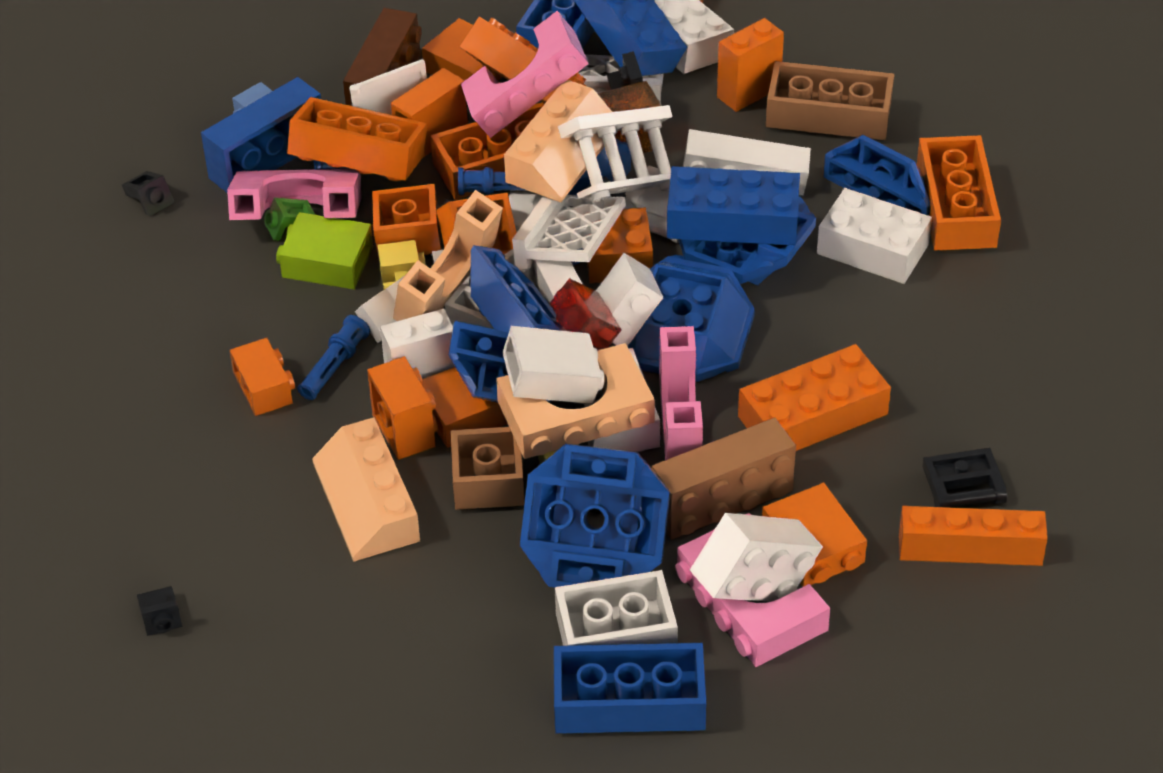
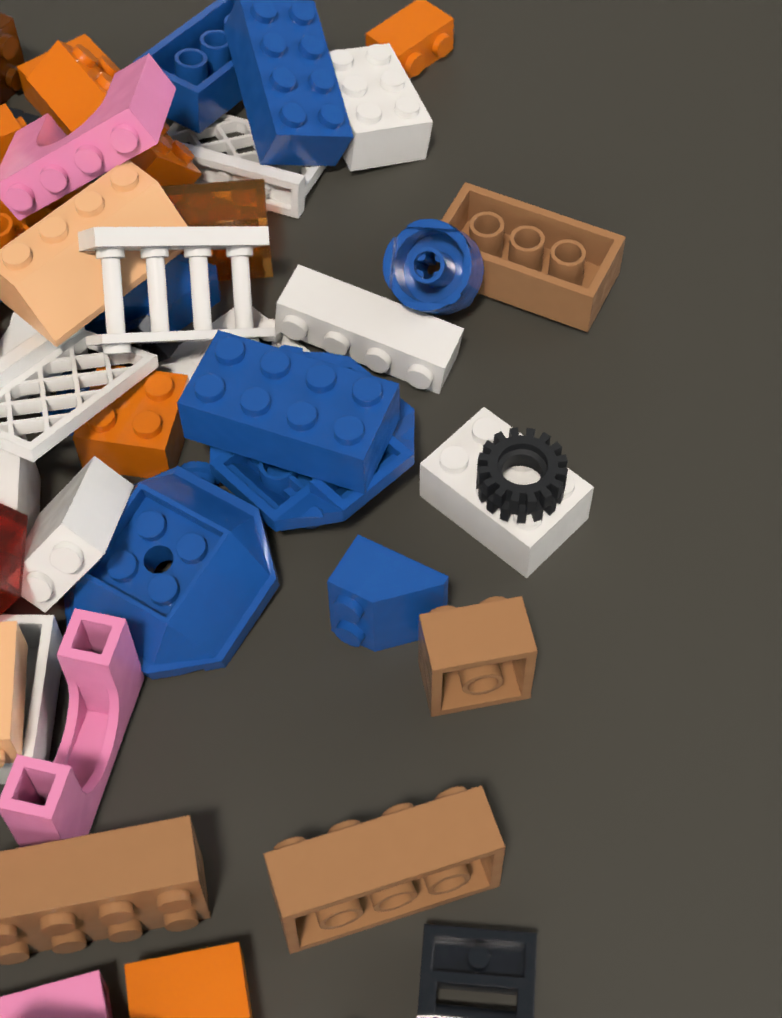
camera: 15 degrees right, 10 degrees up
(627, 74) = (250, 161): black bracket -> none
(748, 63) = (428, 171): orange brick -> none
(764, 107) = (423, 246): none -> blue brick
(818, 397) = (295, 769): orange brick -> none
(831, 301) = (380, 594): none -> blue slope
(877, 172) = (549, 398): blue wedge -> none
(889, 226) = (527, 452): none -> black tyre
(891, 432) = (385, 867): none -> medium nougat brick
(898, 319) = (476, 655): none -> medium nougat brick
(959, 193) = (654, 450): orange brick -> none

